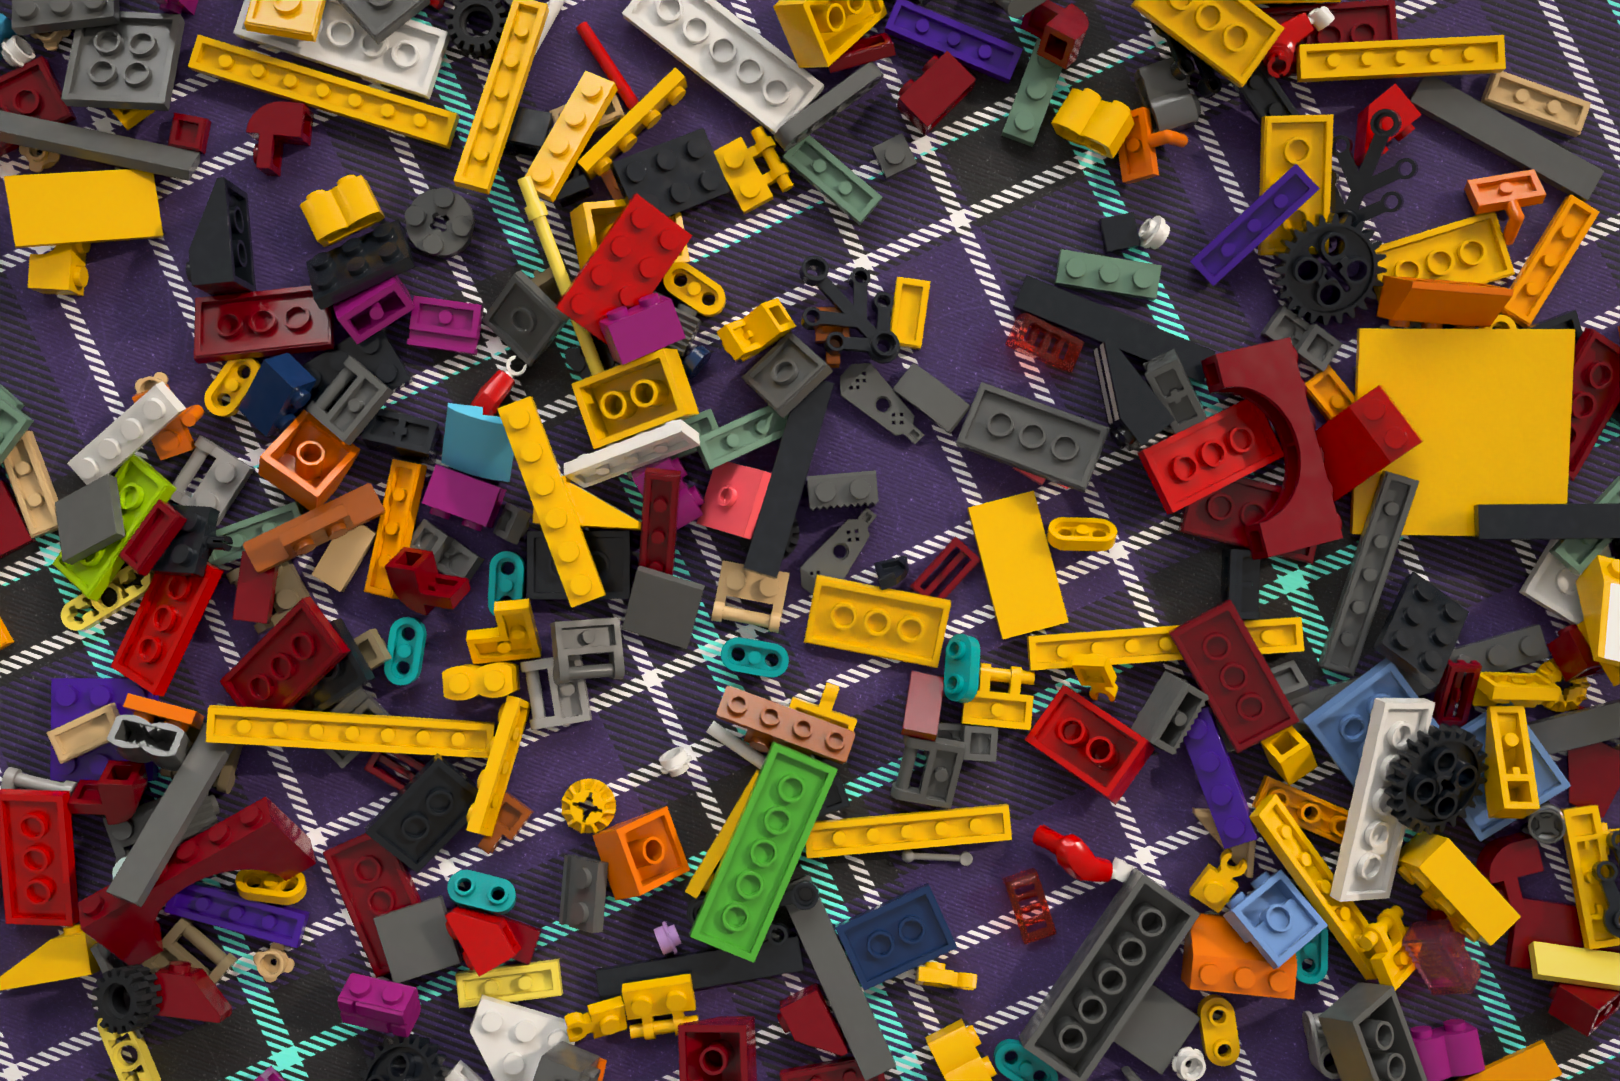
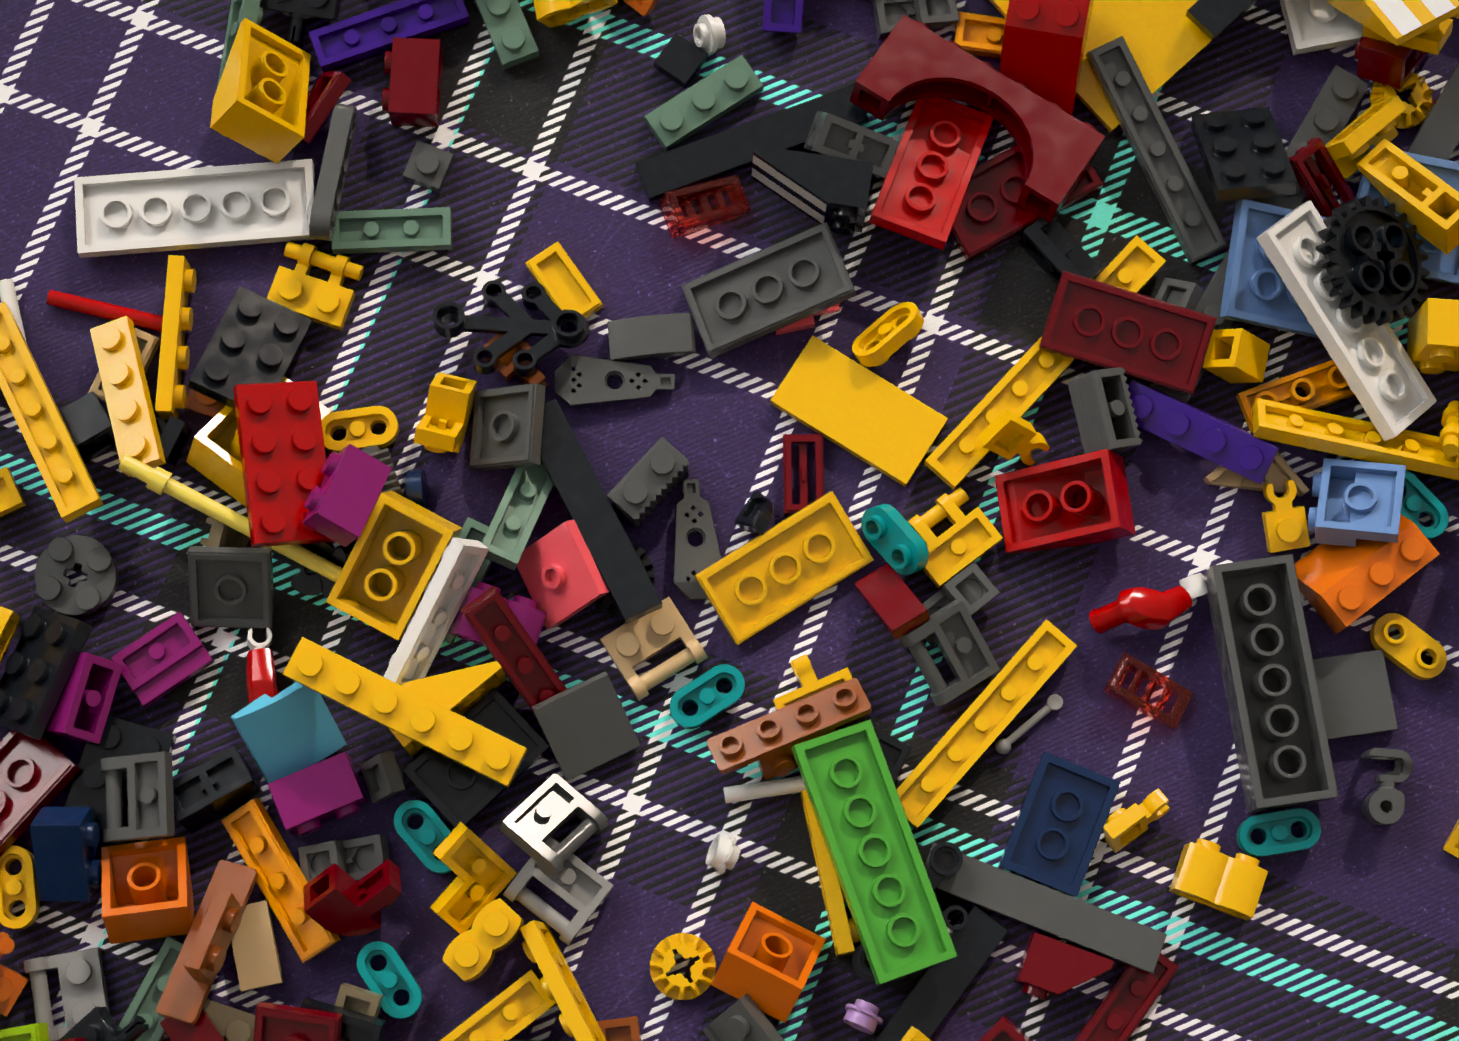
camera: 45 degrees left, 10 degrees down
(1194, 1069) = (1420, 697): white plate -> none

